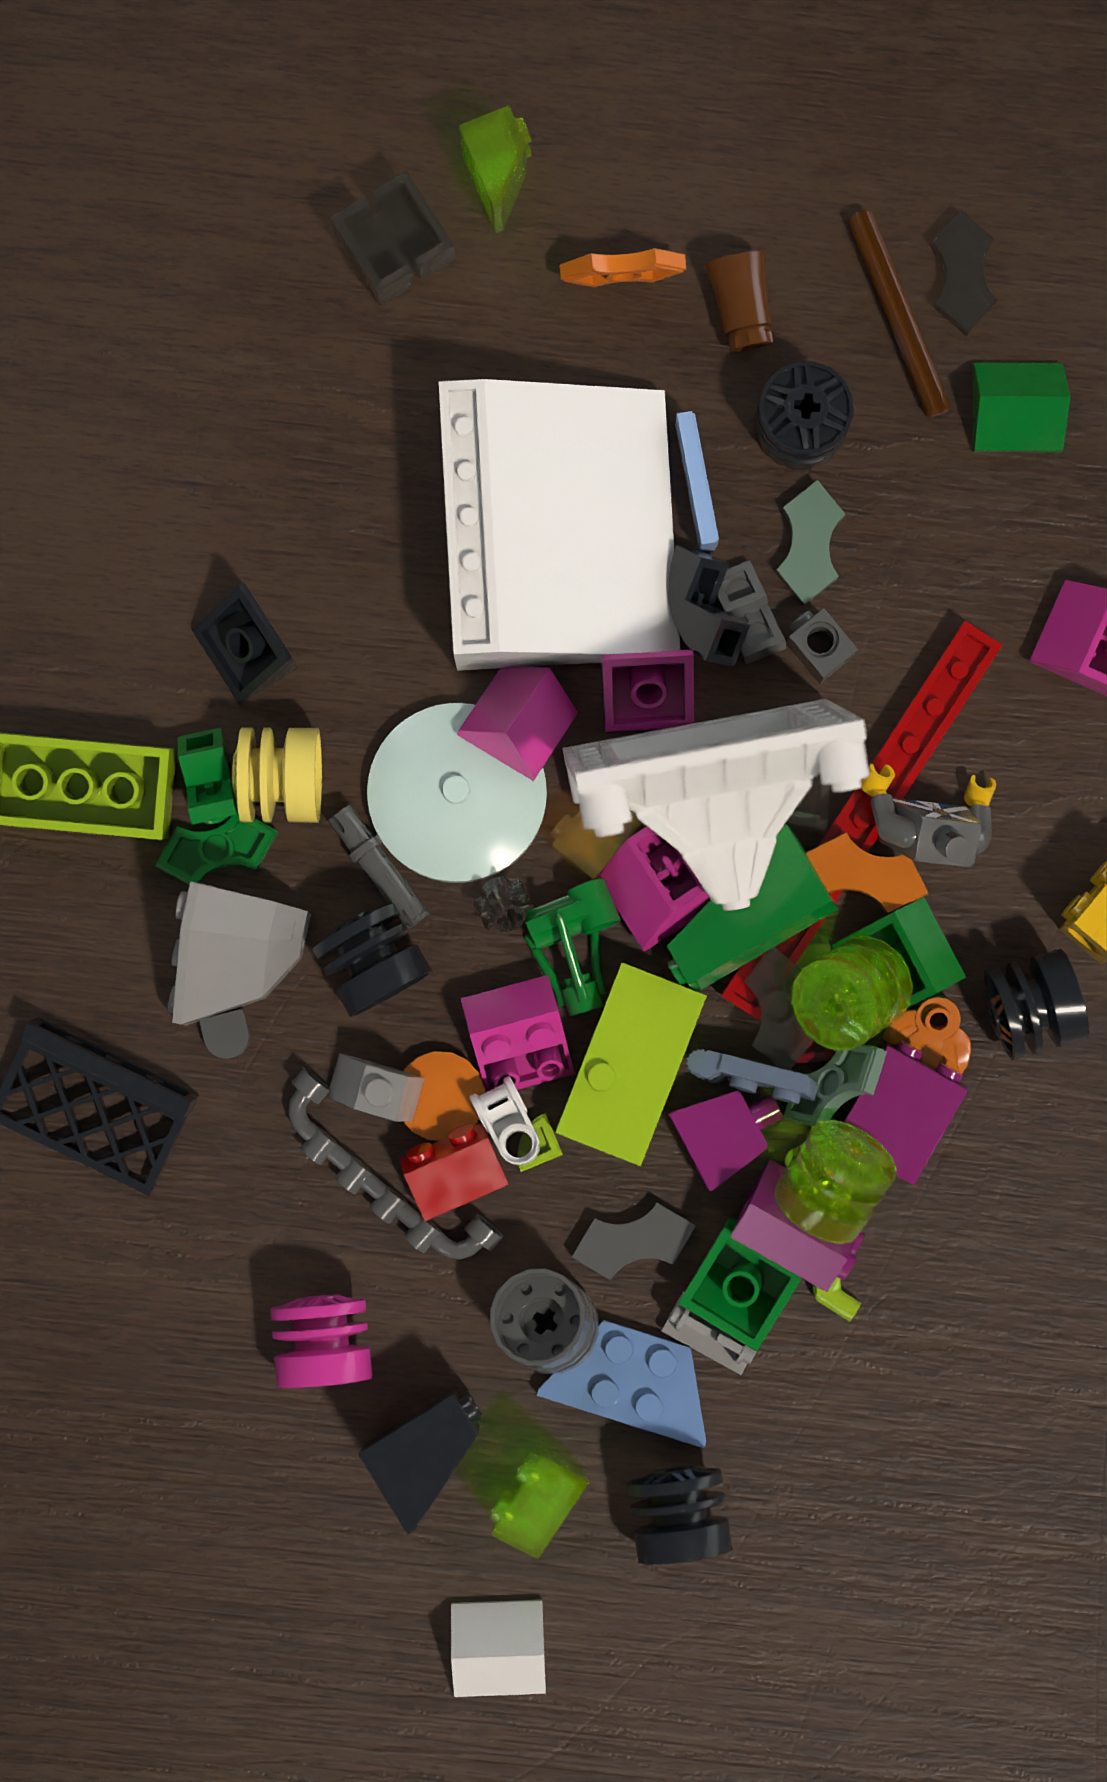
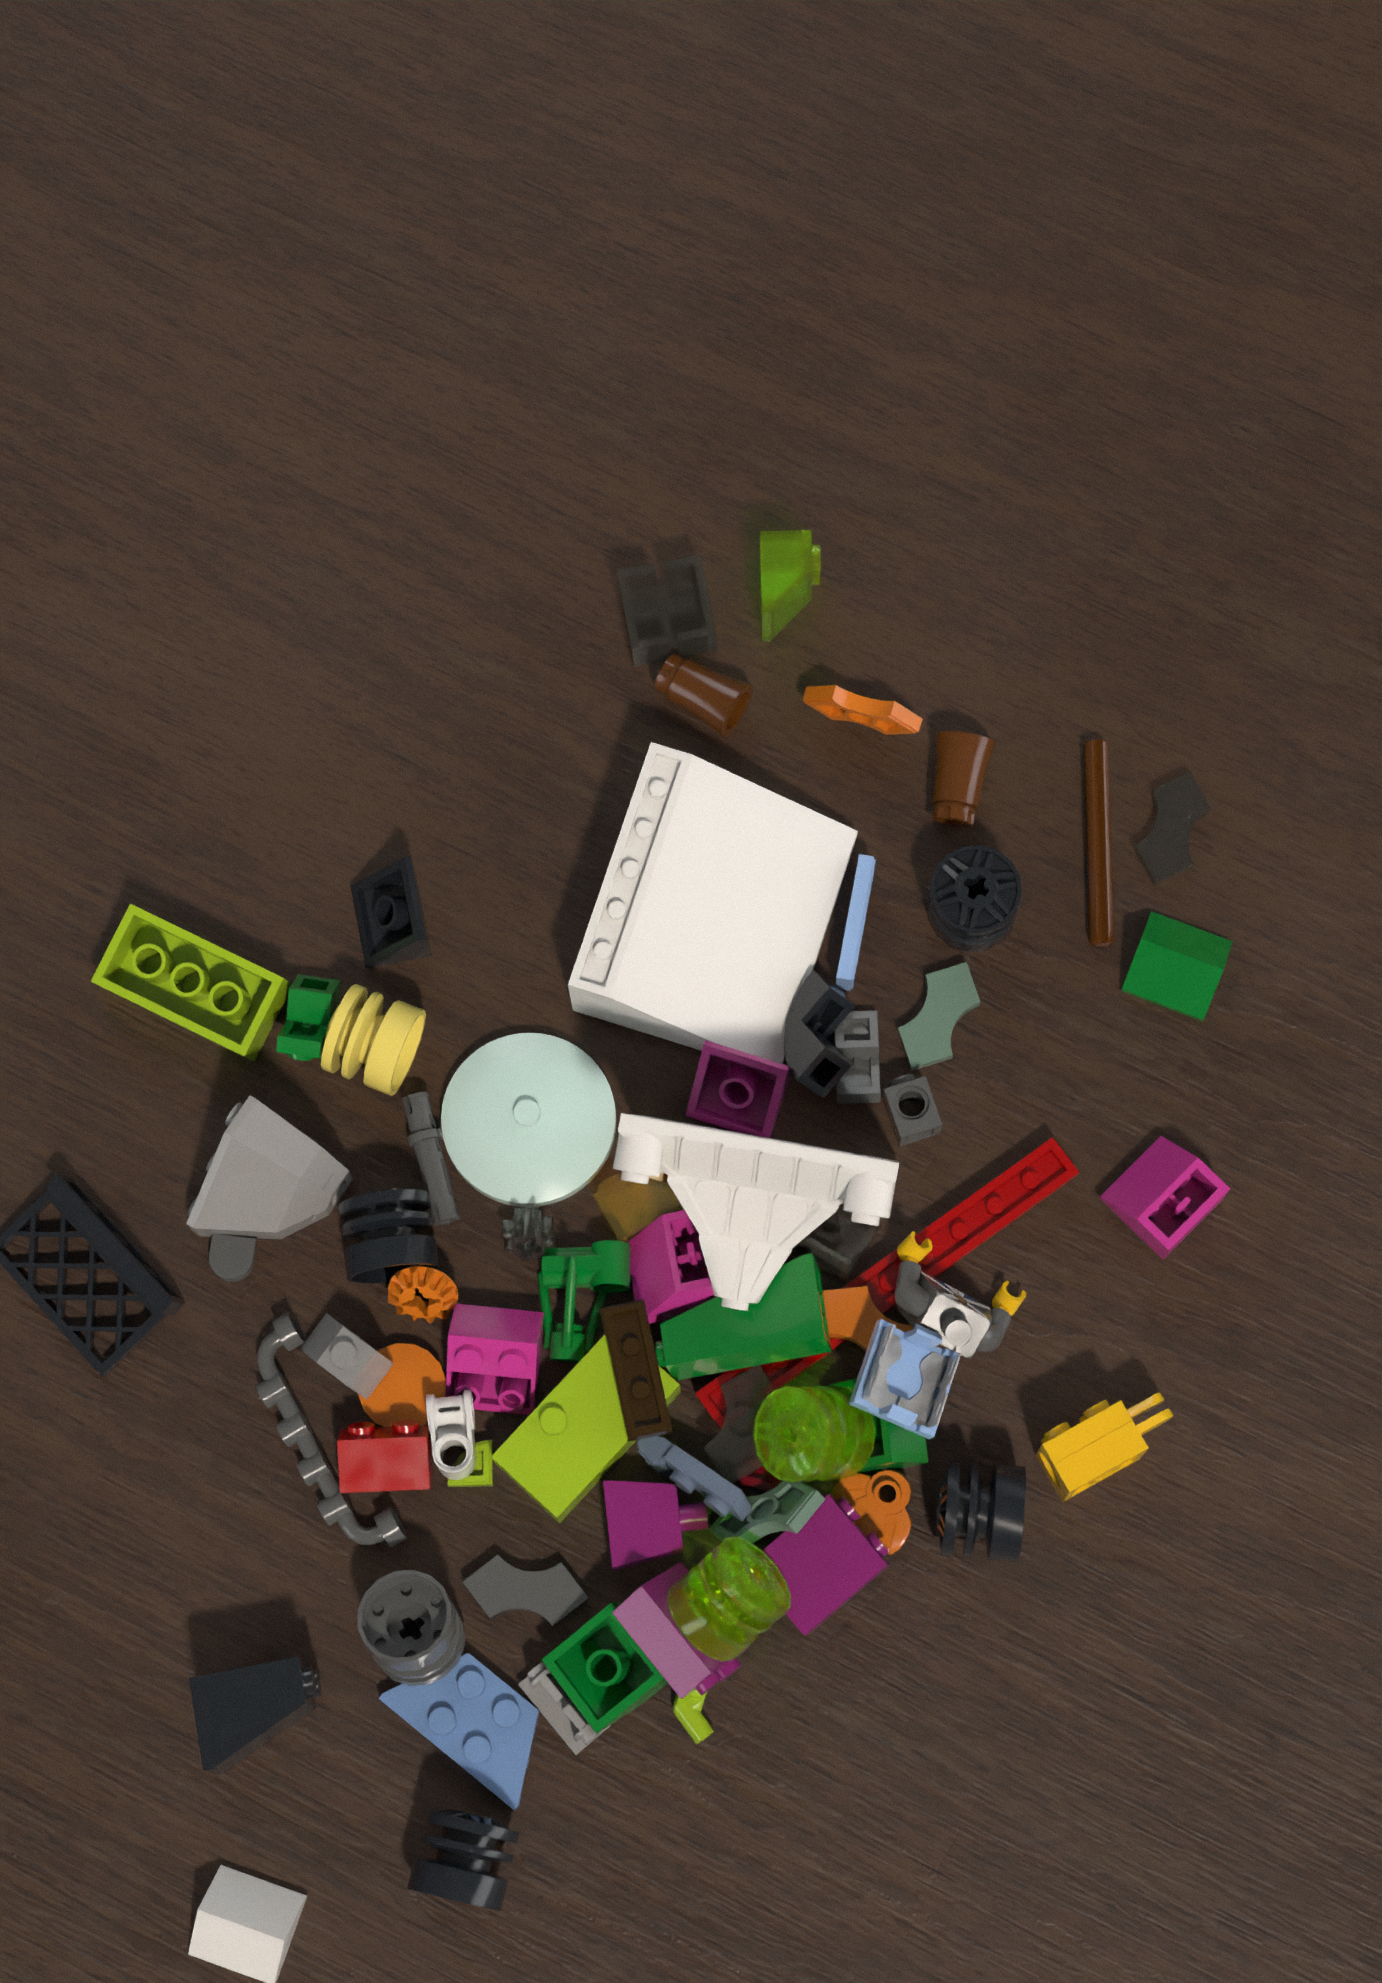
camera: 25 degrees right, 10 degrees down
(196, 854) = (301, 1088): green tile -> none
(321, 1342) = (200, 1566): dark pink wheel -> none
(437, 991) = (432, 1284): none -> orange gear
(461, 307) = (704, 693): none -> reddish brown plant
(520, 718) = (611, 1073): dark pink slope -> none
(539, 1502) = (338, 1796): clear neon green slope -> none
(661, 999) = (635, 1370): none -> dark brown tile
(921, 909) = (905, 1377): none -> piece

